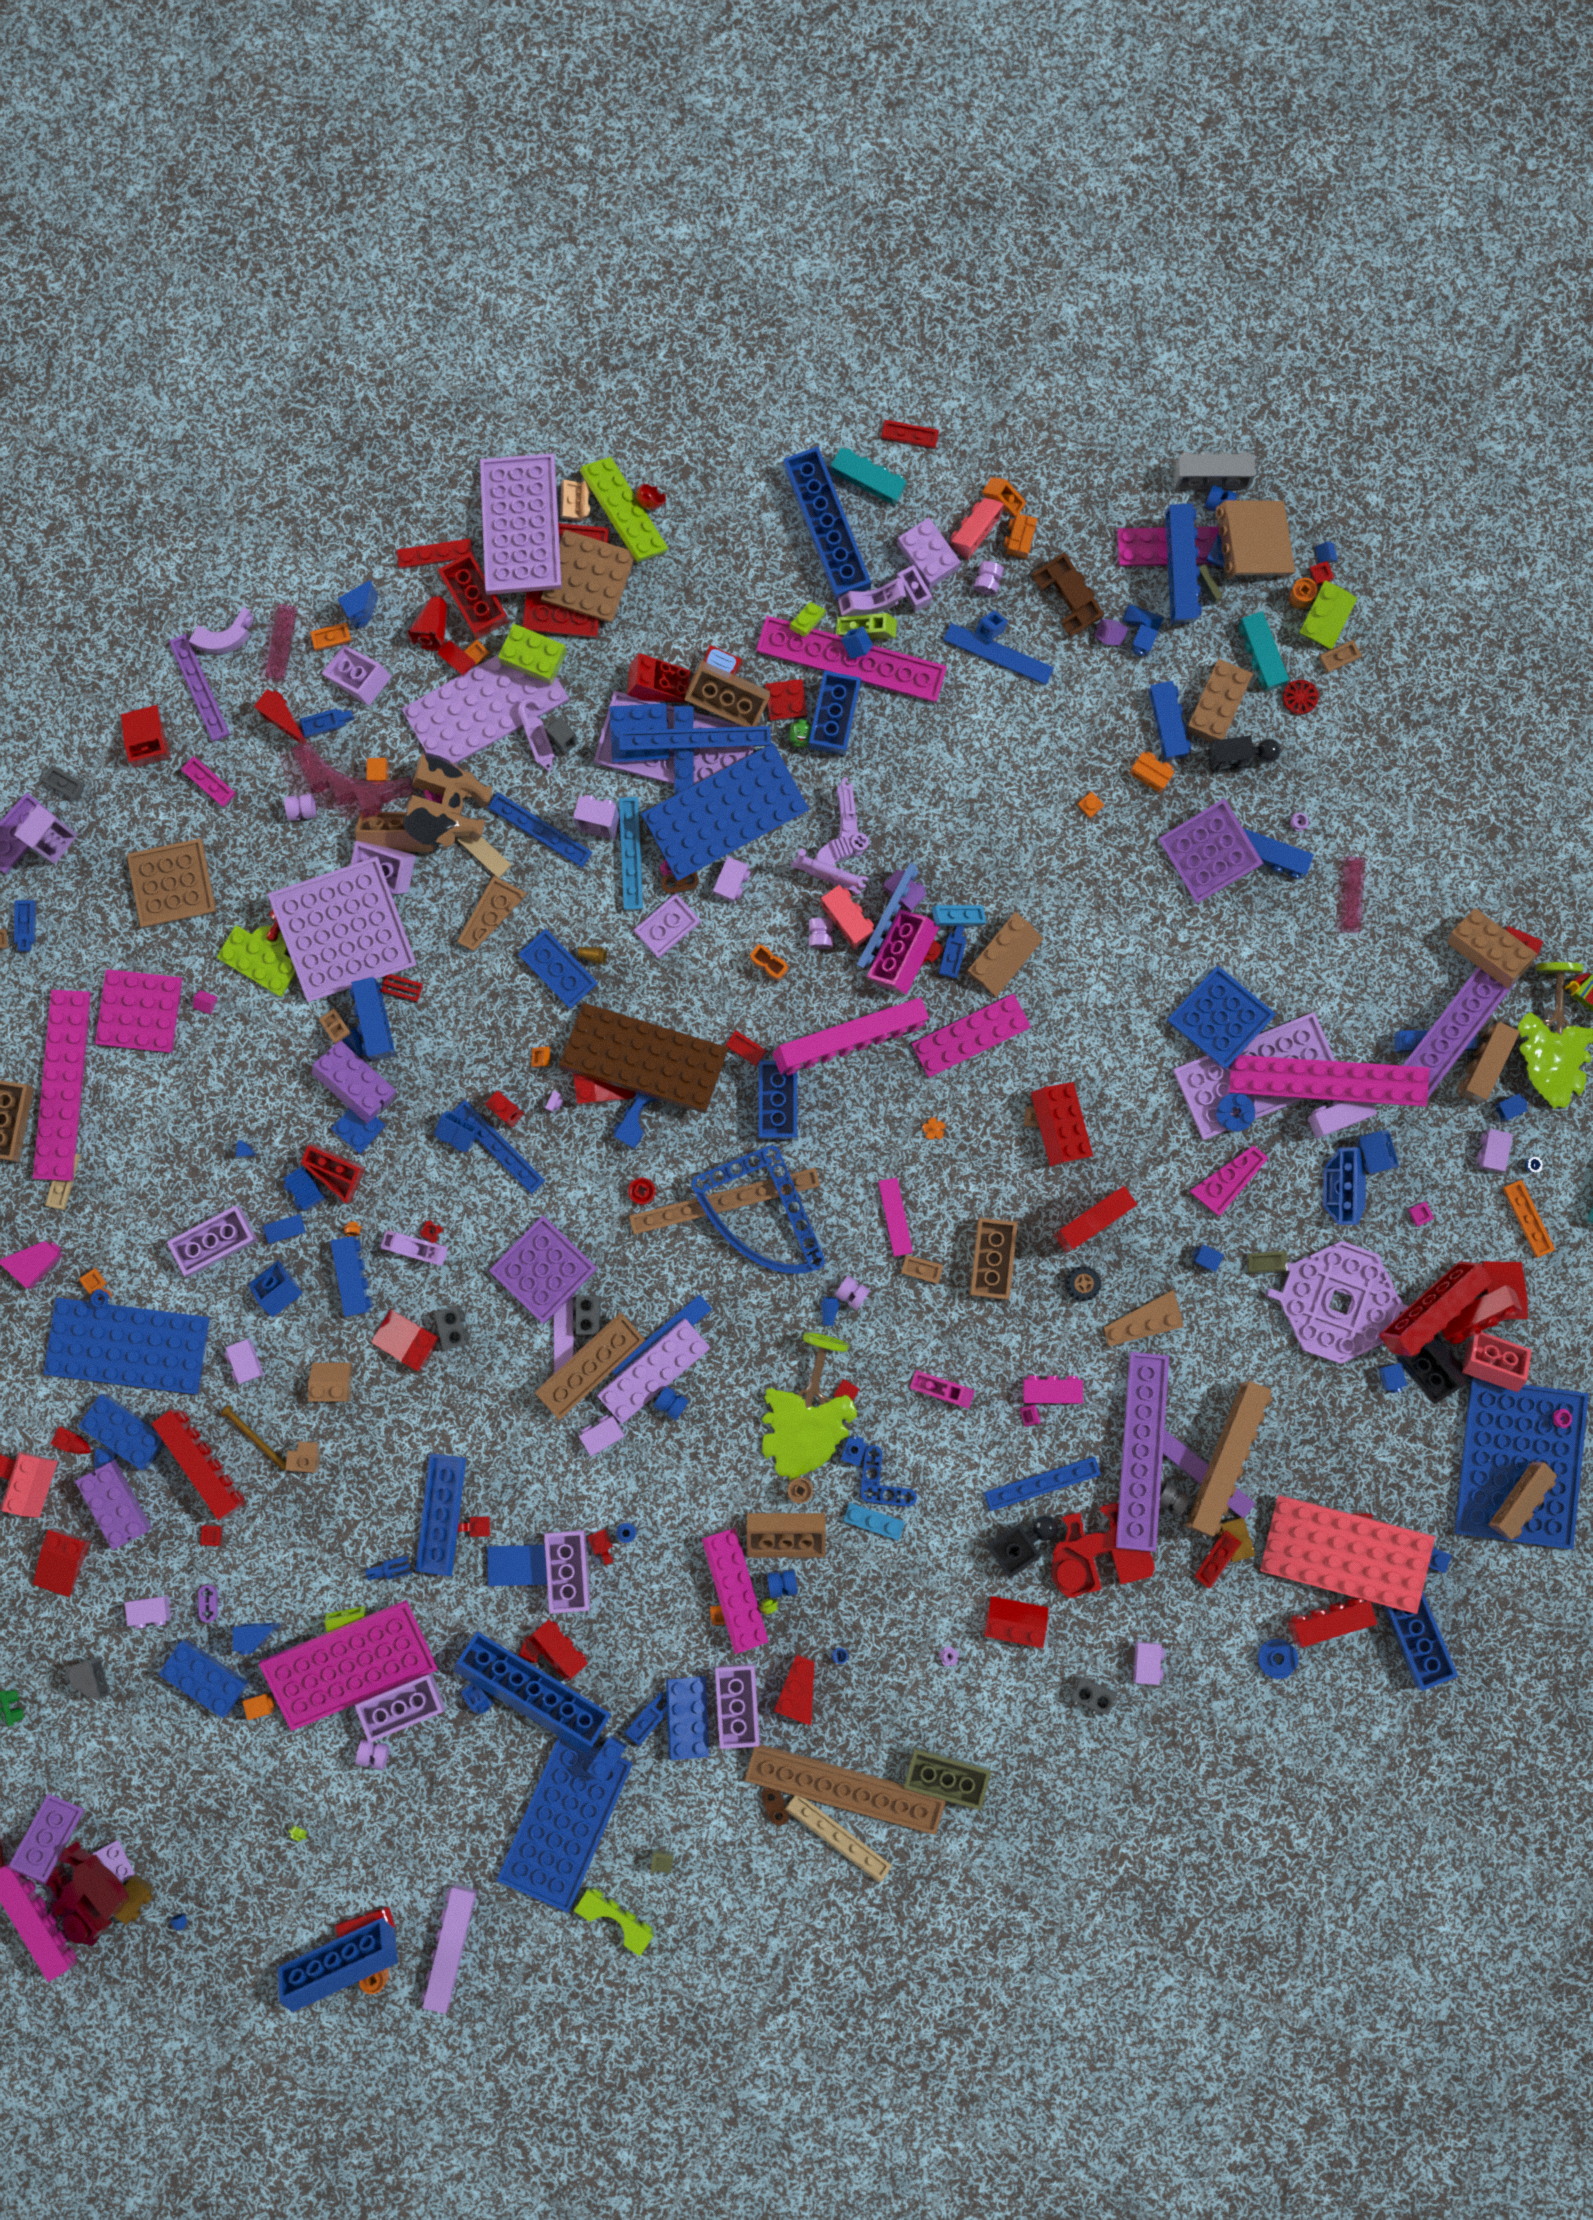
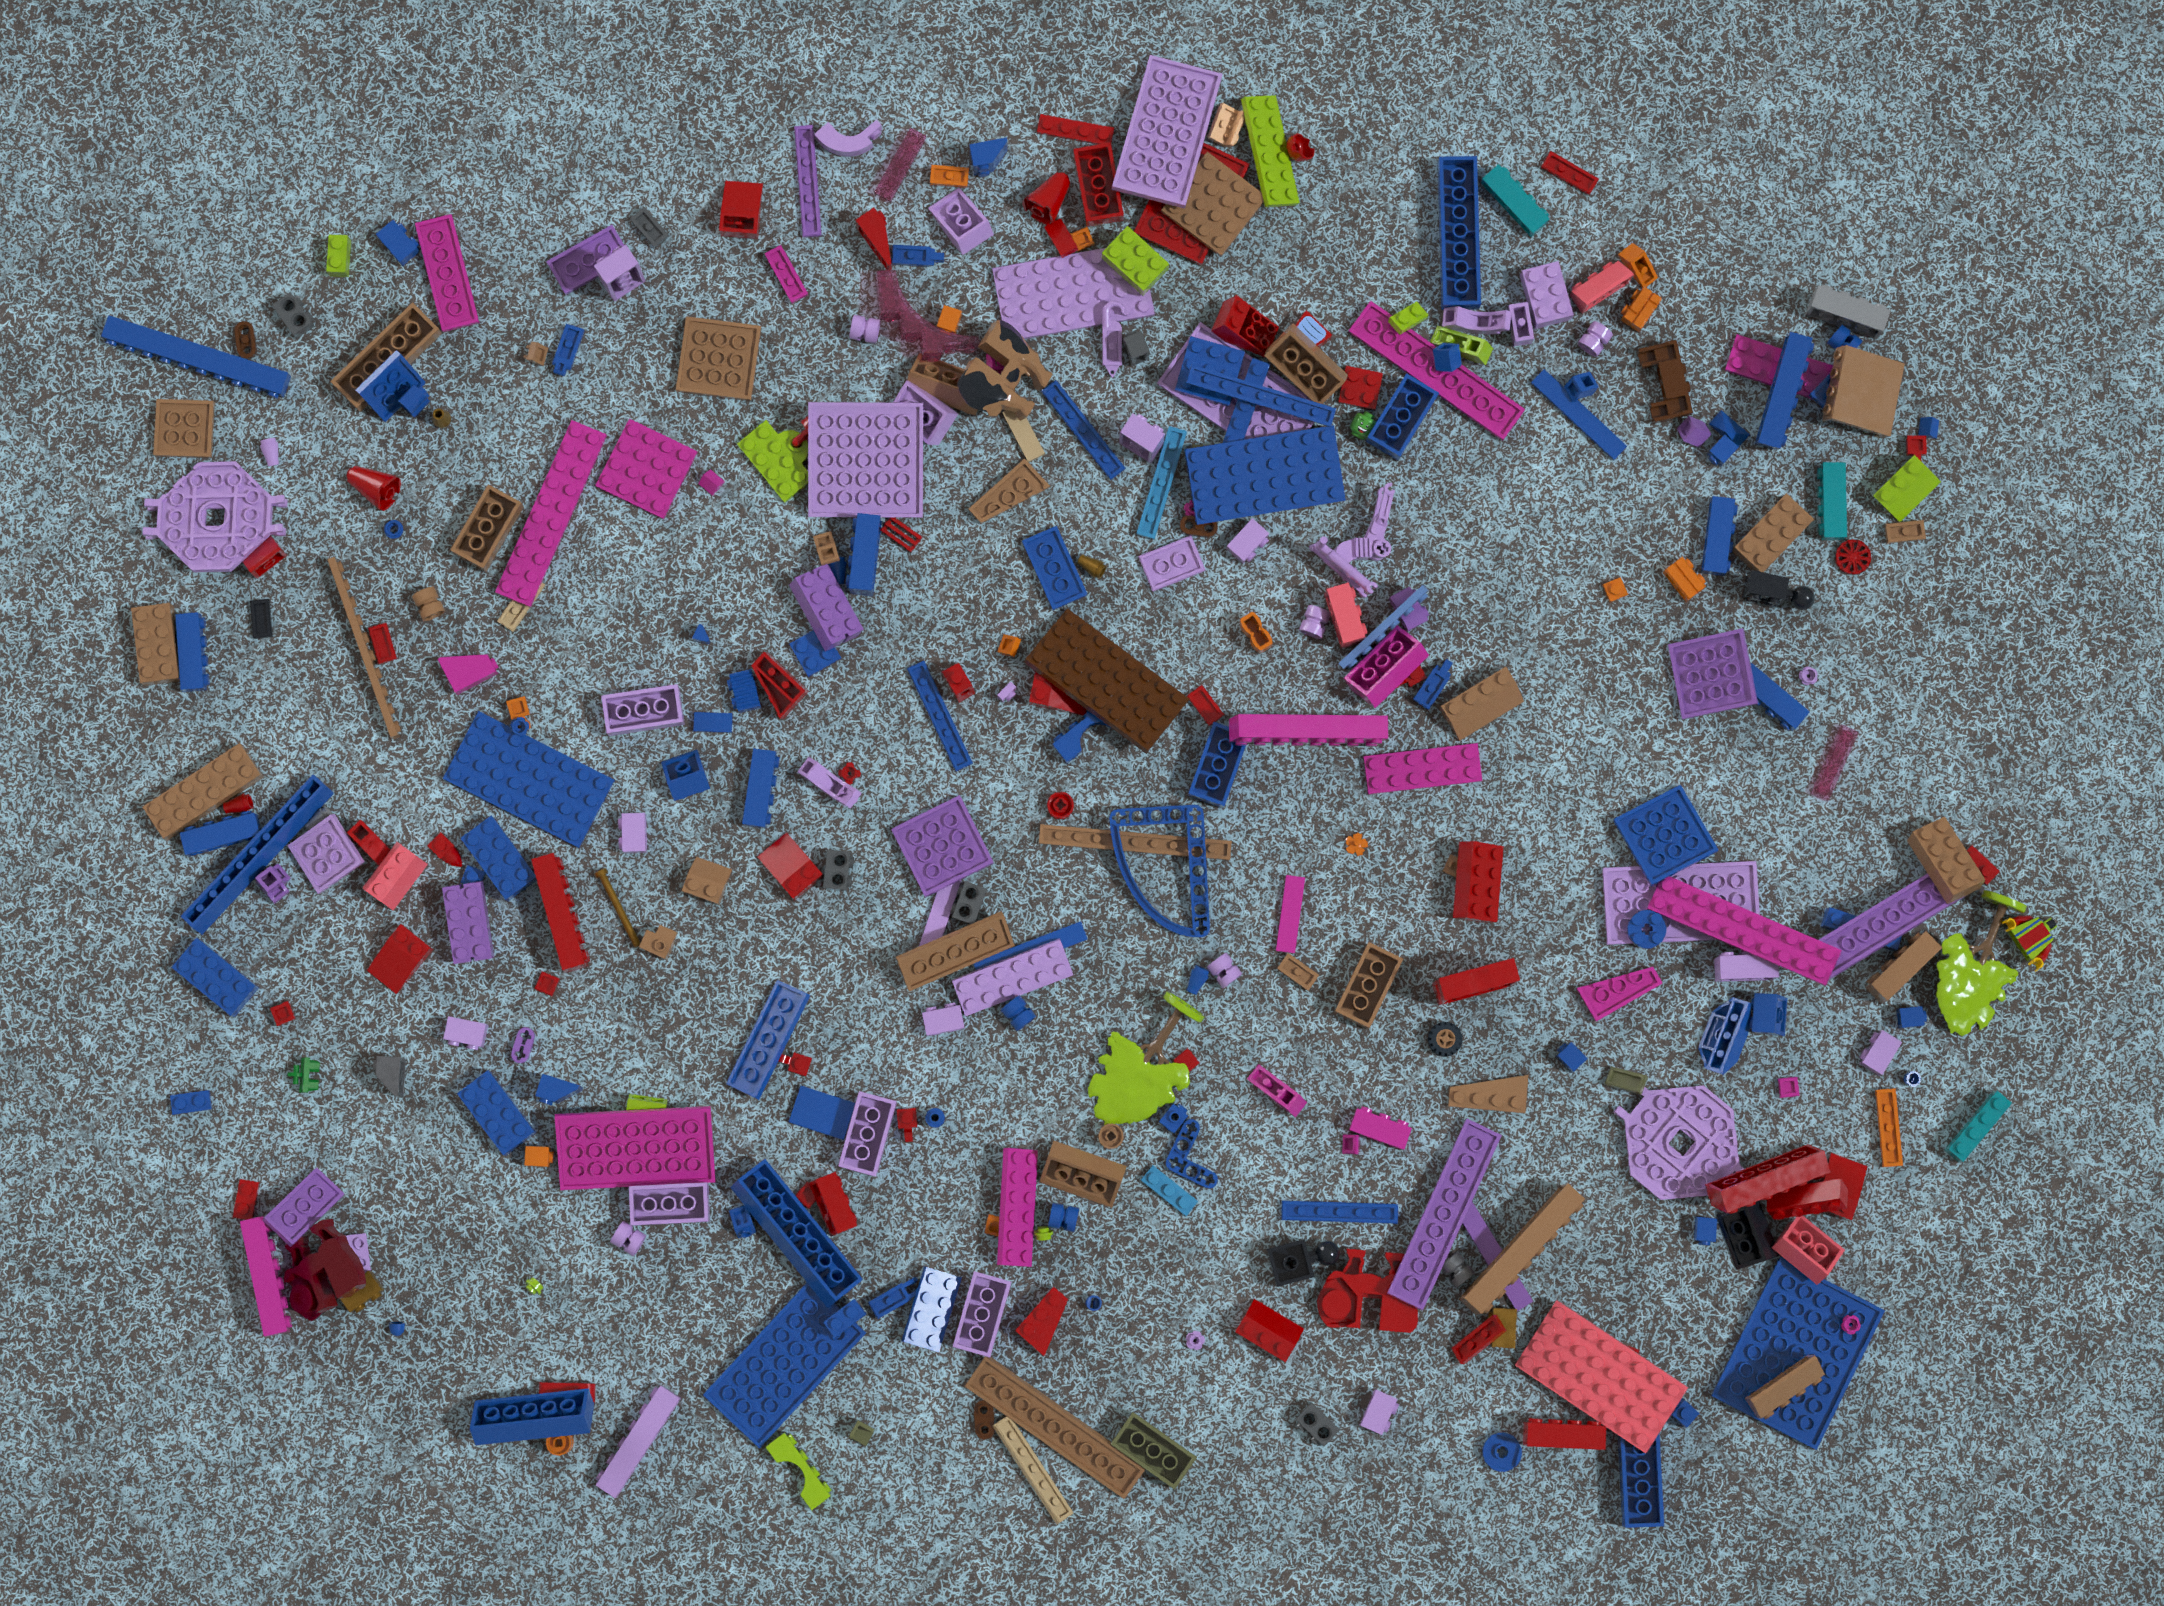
camera: 15 degrees right, 0 degrees up
(352, 1229) = (776, 744): orange plate -> none
(389, 1570) = (699, 1073): blue arm -> none
(456, 1131) = (906, 687): blue brick -> none
(959, 915) = (1451, 651): dark azure plate -> none
(1209, 585) = (1804, 418): olive tile -> none
(1302, 593) = (1890, 458): orange wheel -> none

